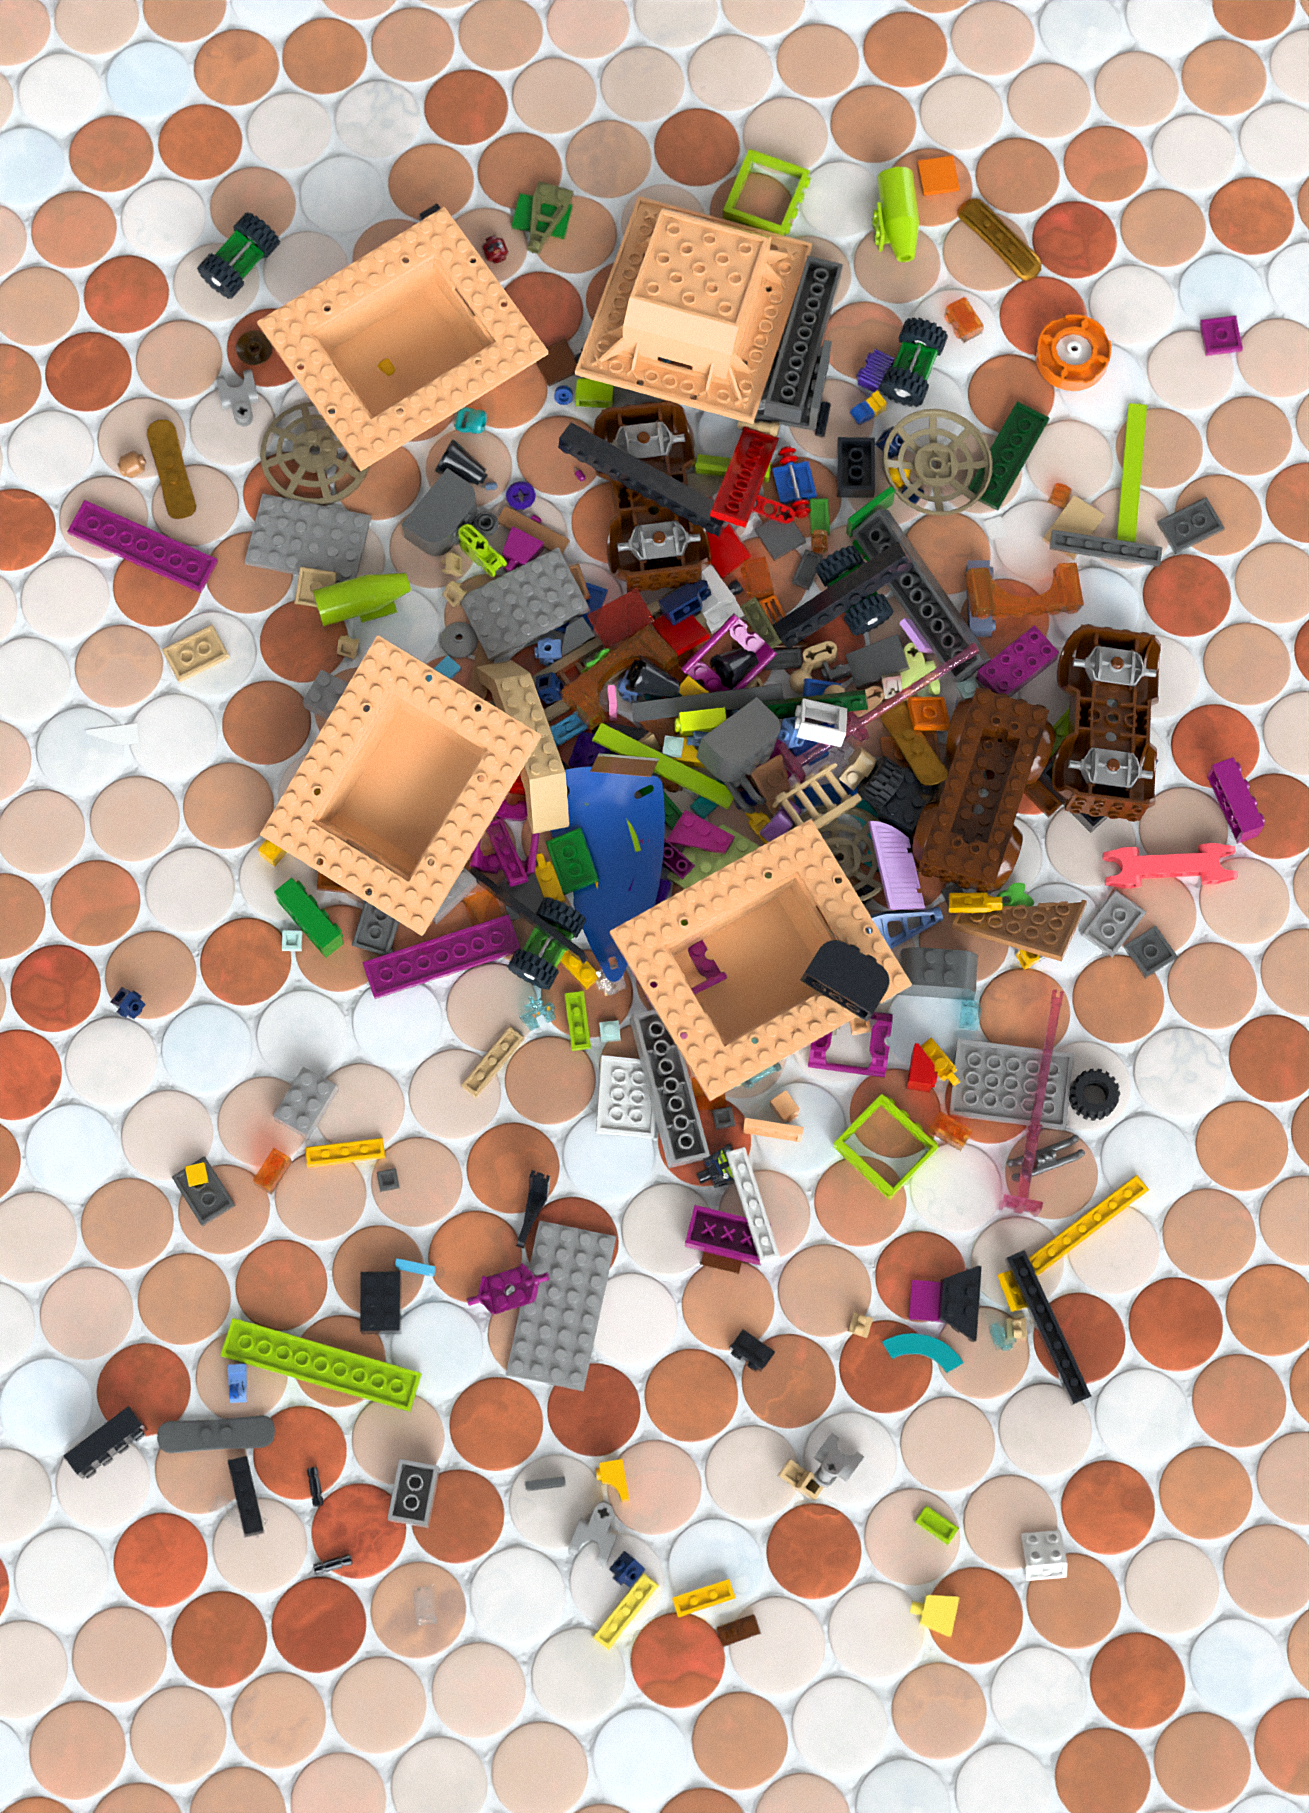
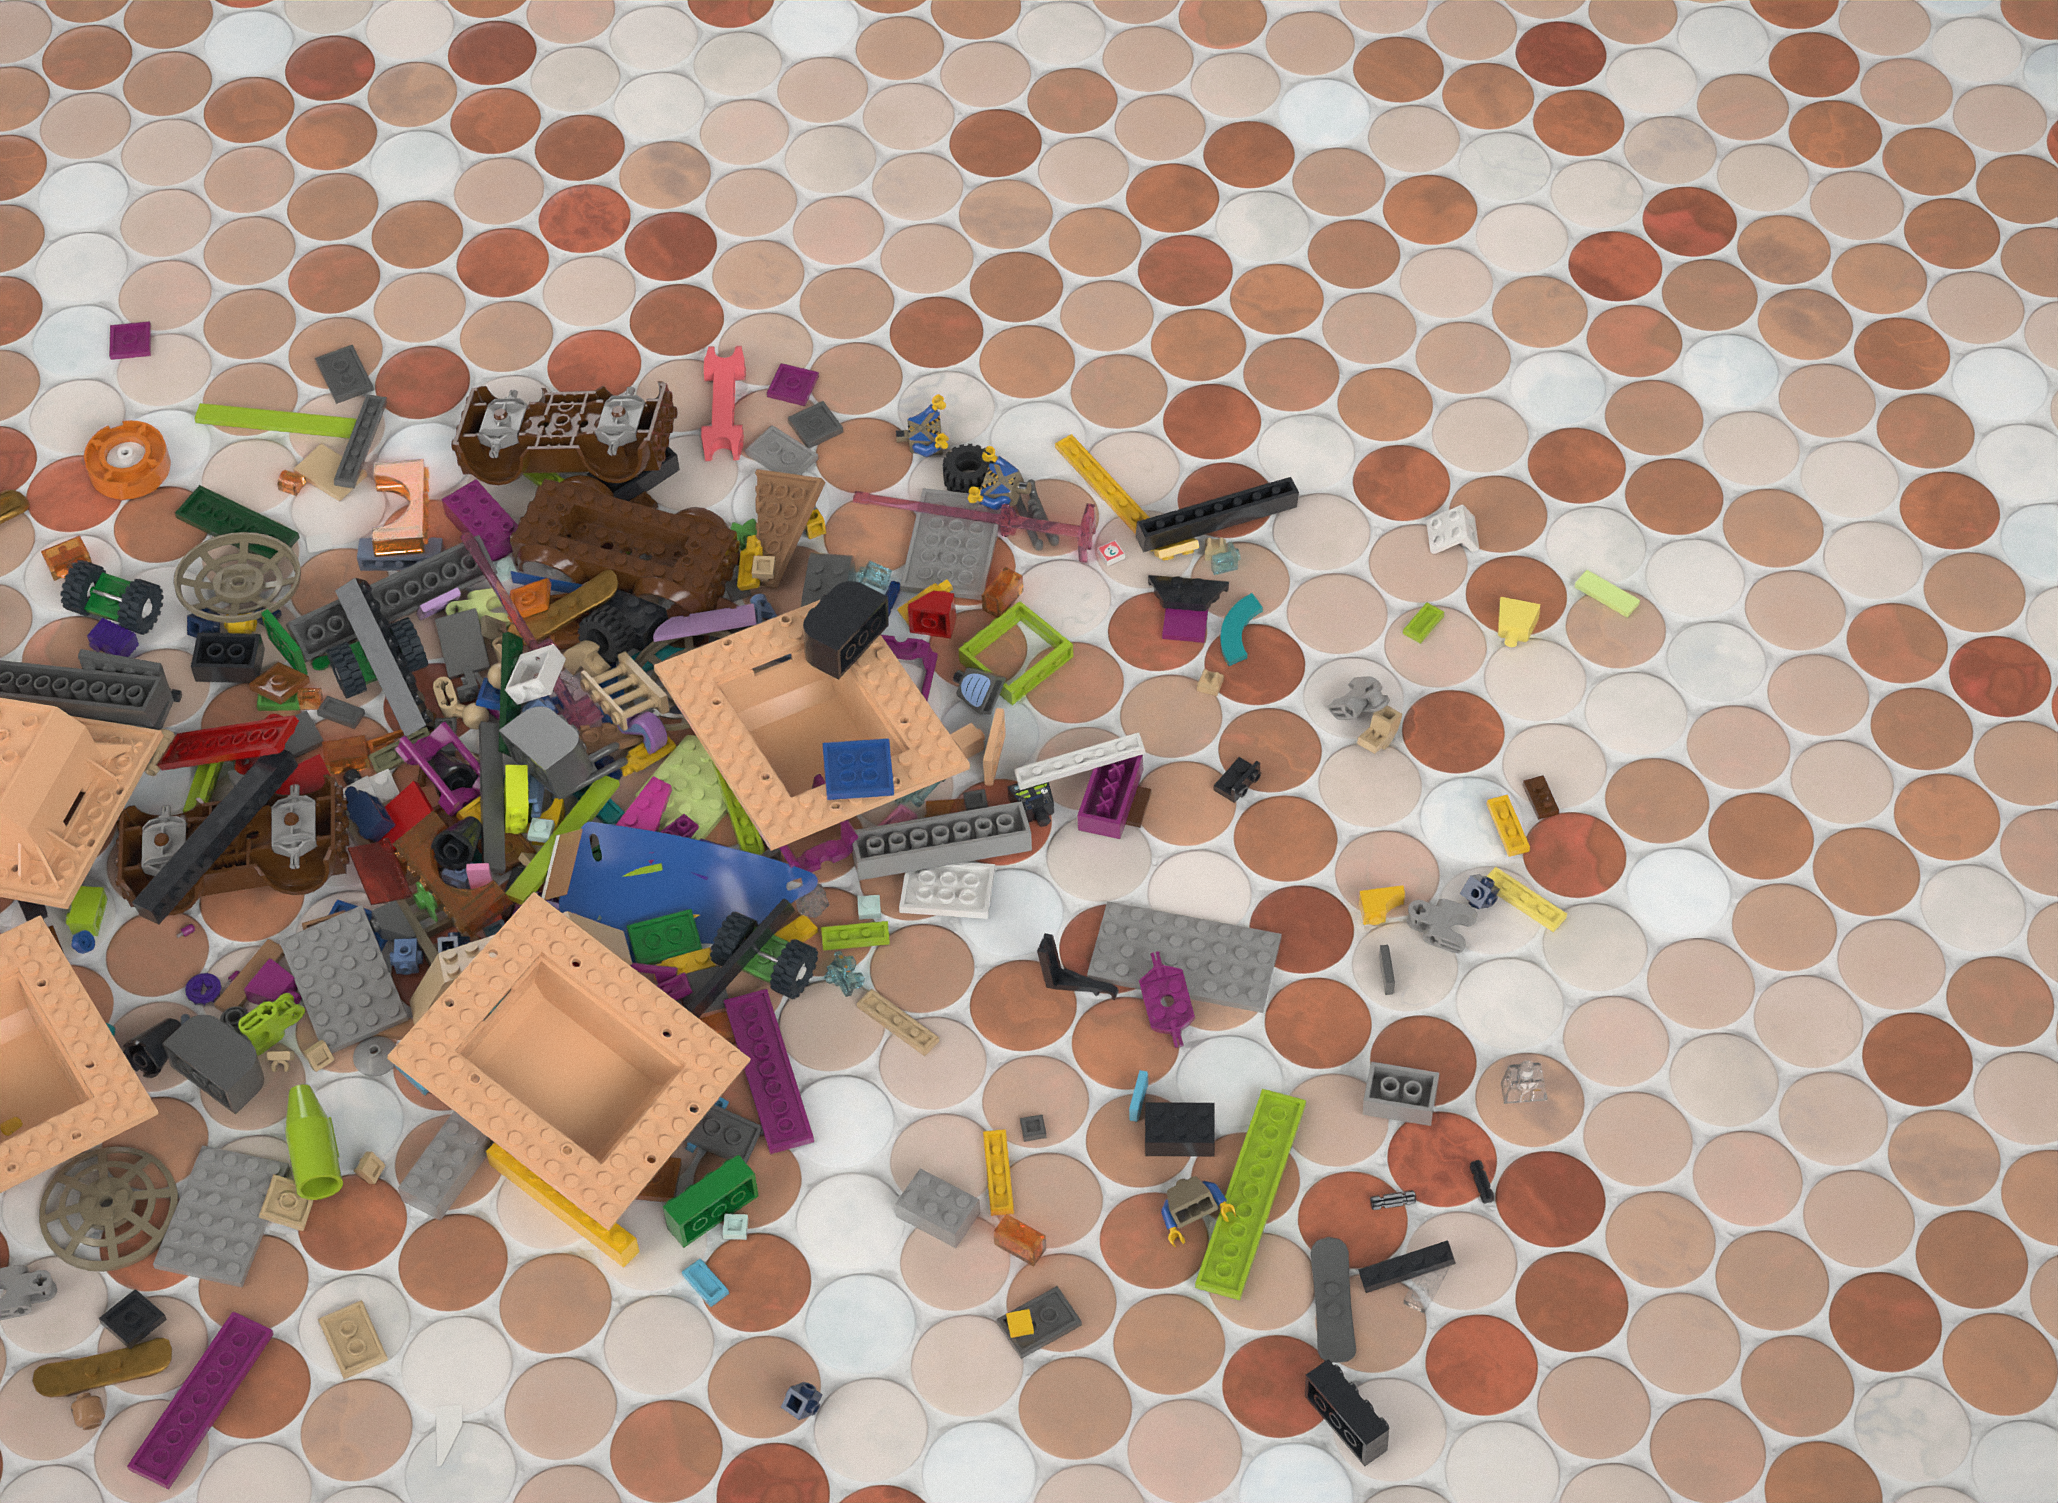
camera: 85 degrees left, 20 degrees down
(212, 485) = (132, 1319): none -> black plate
(237, 1382) = (1272, 1279): medium blue leg -> none
(243, 921) = (705, 1282): none -> medium azure tile
(305, 1312) = (1191, 1201): none -> dark tan torso
(690, 1000) = (858, 769): none -> blue plate
(794, 482) = (232, 713): blue plate -> none
(832, 514) = (279, 683): none -> dark orange tile
(839, 1113) = (979, 688): none -> torso
(869, 408) = (156, 646): leg -> none
(946, 1030) = (894, 589): none -> clear blue axle
(962, 913) = (763, 567): none -> tan tile
(977, 1703) = (1607, 593): none -> yellowish green tile
(1008, 1231) = (1111, 553): none -> white tile
(1069, 1123) = (1001, 483): none -> torso
(1141, 1052) = (925, 430): none -> torso
(1199, 928) = (792, 384): none -> magenta tile
(1236, 800) = (659, 341): magenta brick -> none

